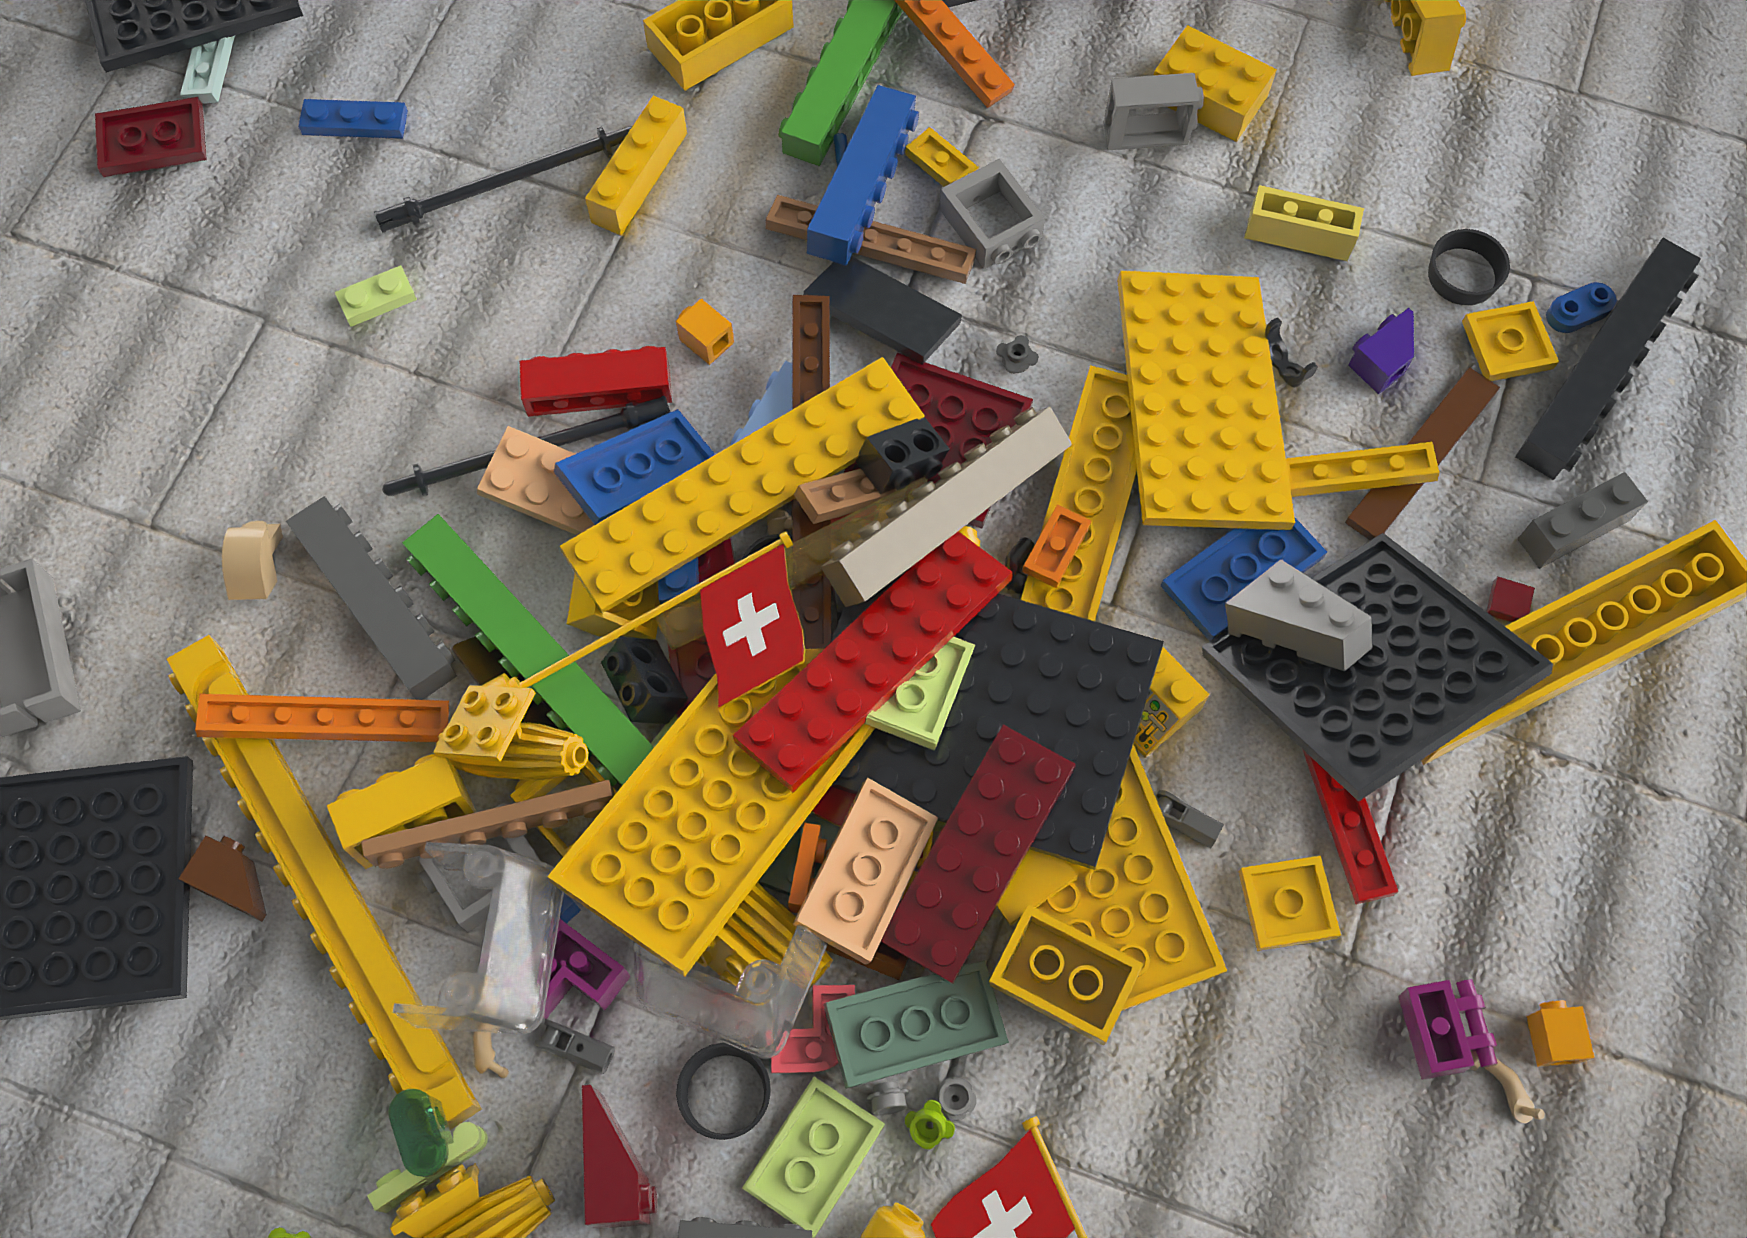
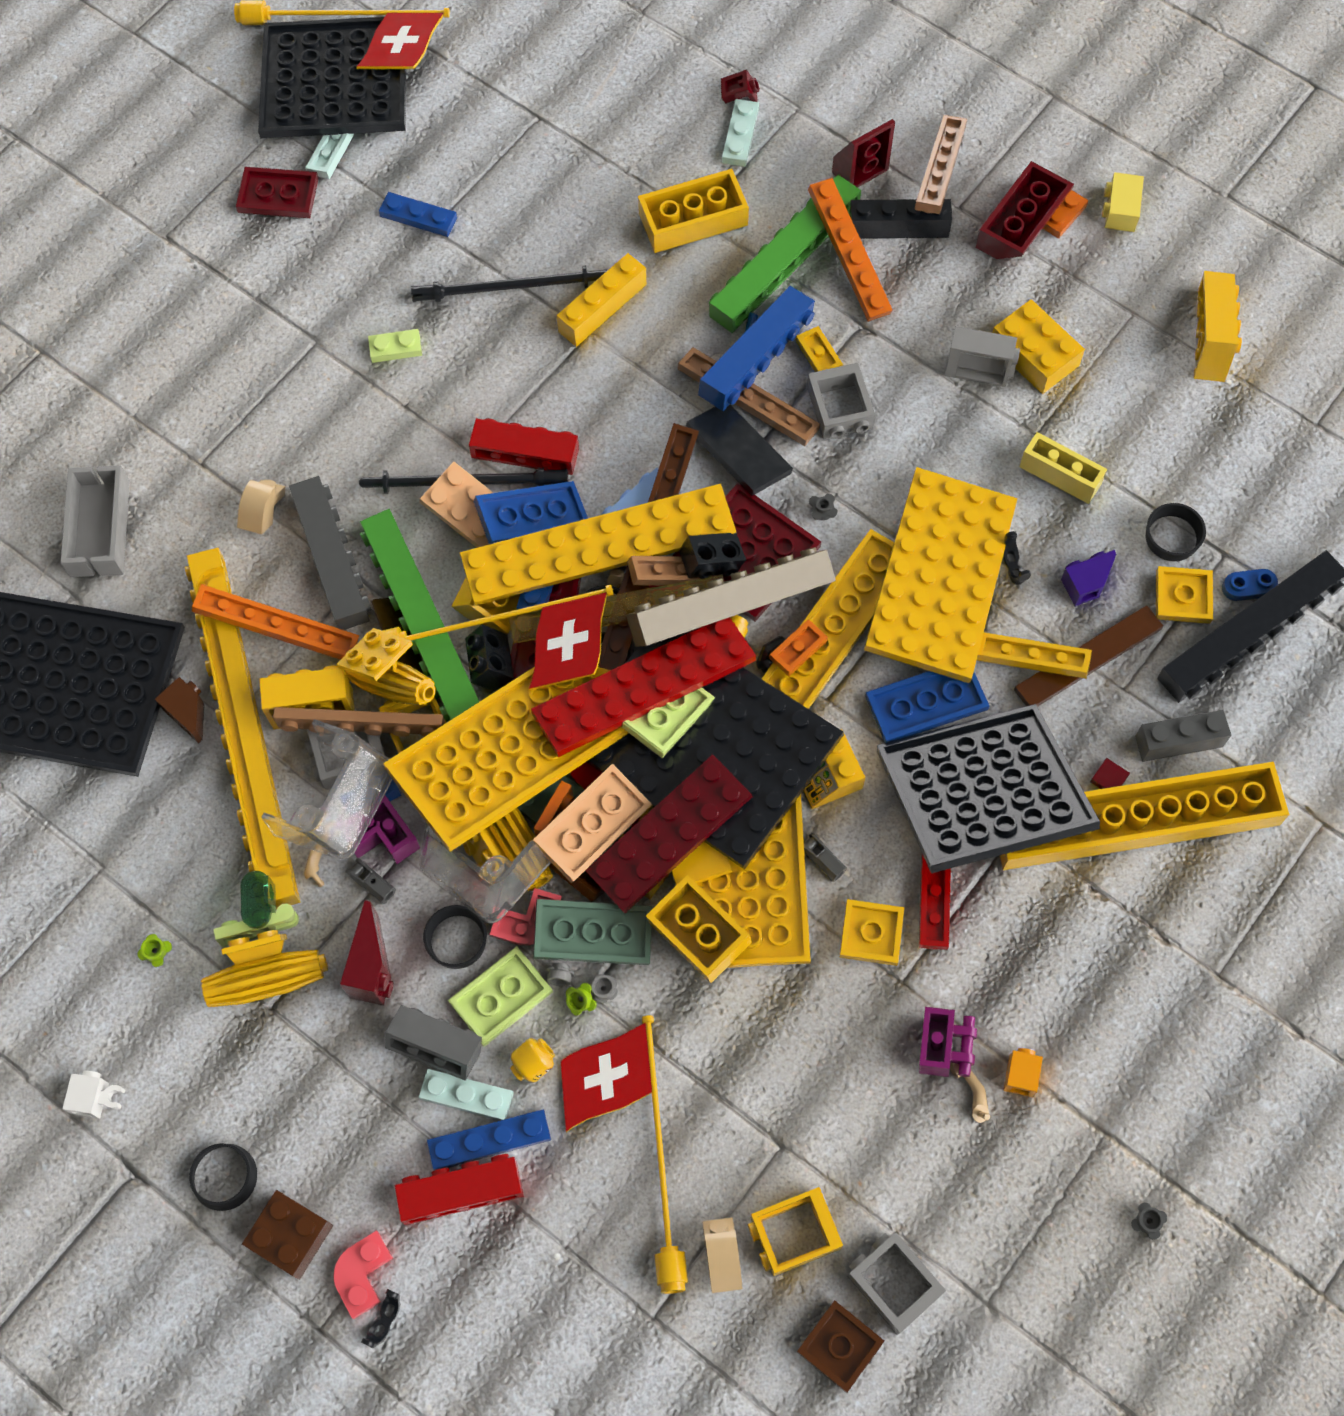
camera: 20 degrees right, 0 degrees up
(704, 331) = (610, 431): light orange brick -> none
(1302, 616) = (945, 741): light grey wedge -> none

